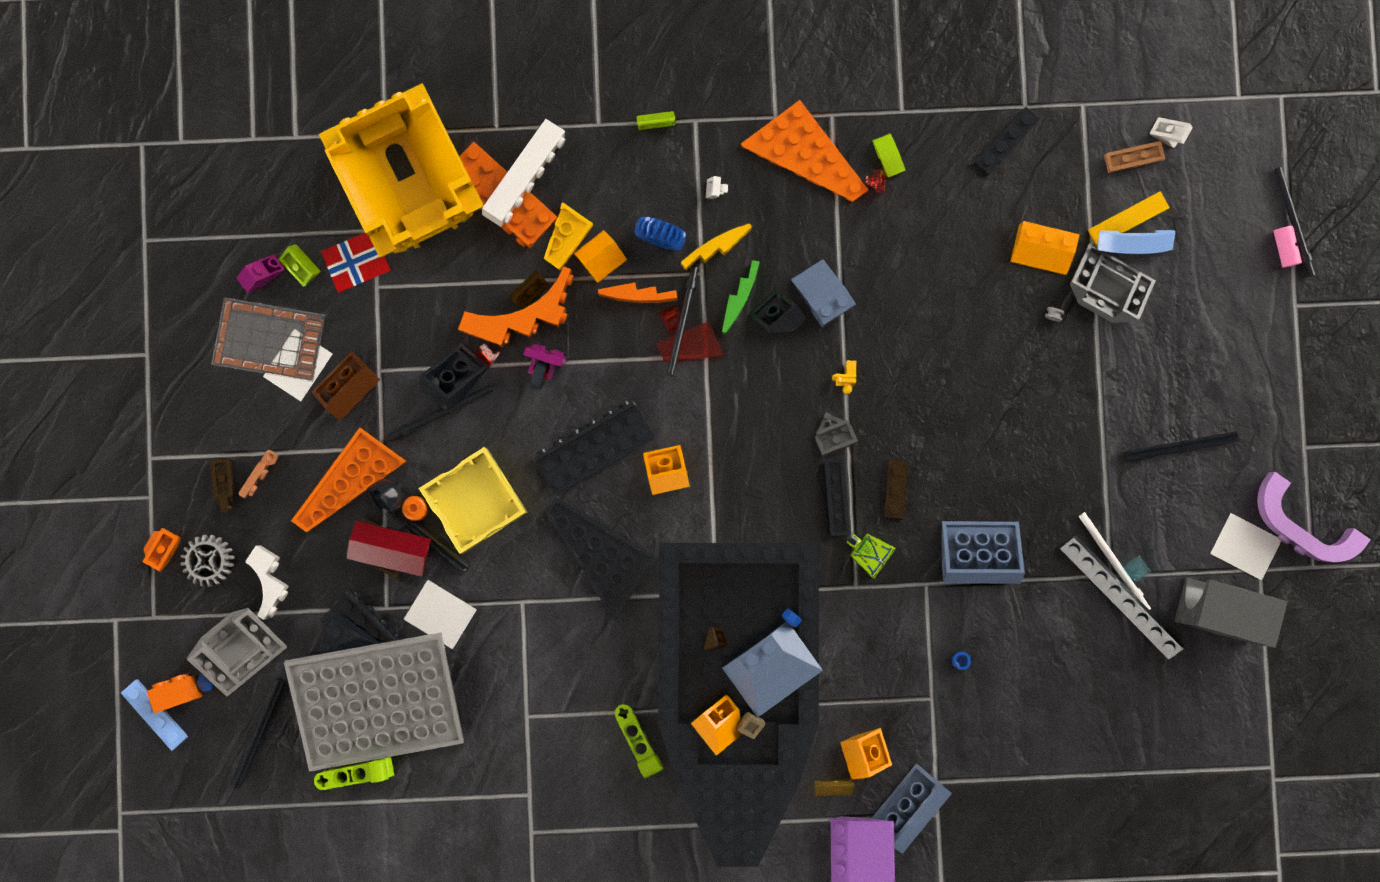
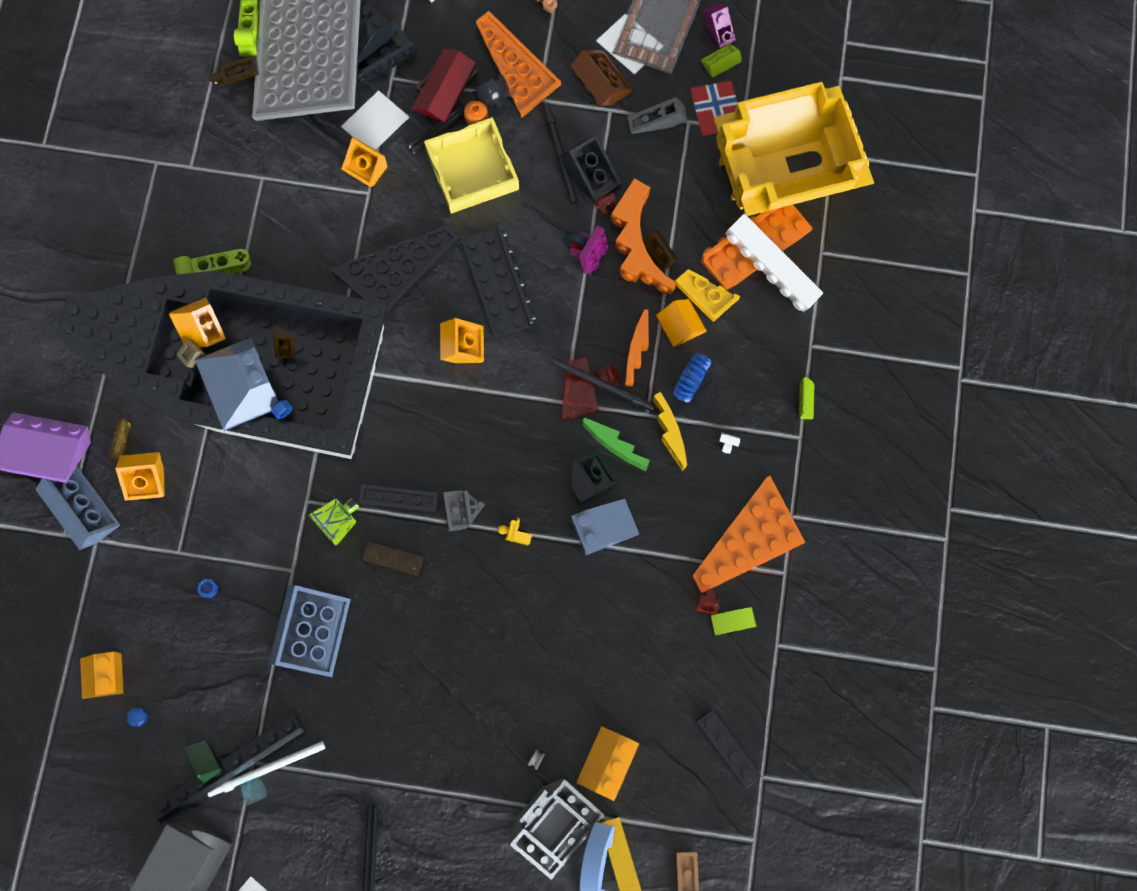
camera: 100 degrees right, 10 degrees down
(381, 319) = (658, 117): none -> dark grey slope
(414, 773) = (235, 71): none -> dark brown hinge
(493, 613) = (364, 162): none -> light orange slope
(1064, 739) = (101, 675): none -> light orange slope
(1093, 695) = (137, 717): none -> blue tile
(1121, 621) = (202, 760): none -> dark green slope

